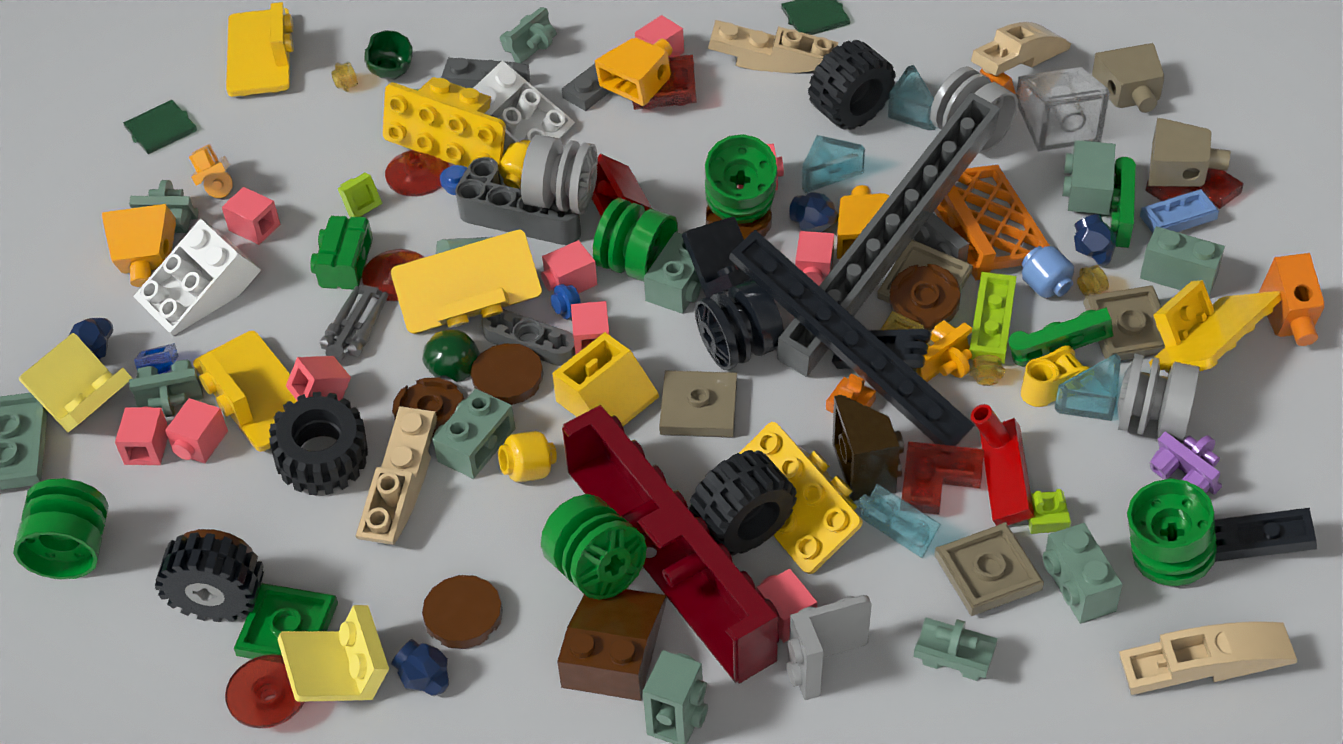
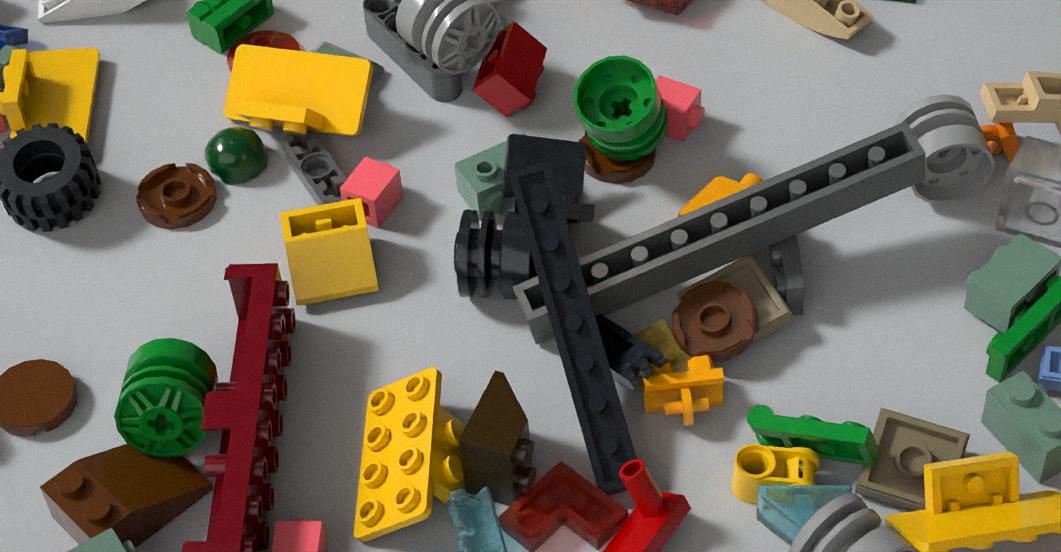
camera: 35 degrees right, 0 degrees up
(318, 375) = (101, 120): coral brick -> none
(362, 335) = (181, 79): flat silver piece -> none
(399, 478) = (80, 253): tan slope -> none
(473, 433) = (184, 237): sand green brick -> none
(508, 372) = (265, 192): reddish brown tile -> none
(527, 456) = (203, 283): yellow head -> none
(563, 298) = (376, 149): blue plate -> none
(569, 266) = (404, 125): coral brick -> none
(631, 237) = (474, 115): green wheel -> none
(698, 403) = (409, 316): dark tan plate -> none
(744, 501) = (326, 430): black tyre -> none
(813, 212) = (684, 177): dark blue rock -> none
(815, 254) = (640, 215): coral brick -> none
(831, 162) = (749, 137): clear light blue slope -> none
(851, 84) = (831, 63): black tyre -> none
(853, 388) = (550, 390): orange tile -> none
(911, 100) = (891, 99): clear light blue slope -> none
(966, 220) = (829, 271): orange fence -> none
(987, 370) = (714, 432): clear yellow plate -> none
(992, 315) = (771, 378): lime plate -> none
(1047, 271) = (870, 361): medium blue head -> none
(1092, 280) = (915, 397): clear yellow plate -> none
(1095, 239) = (956, 353): dark blue rock -> none

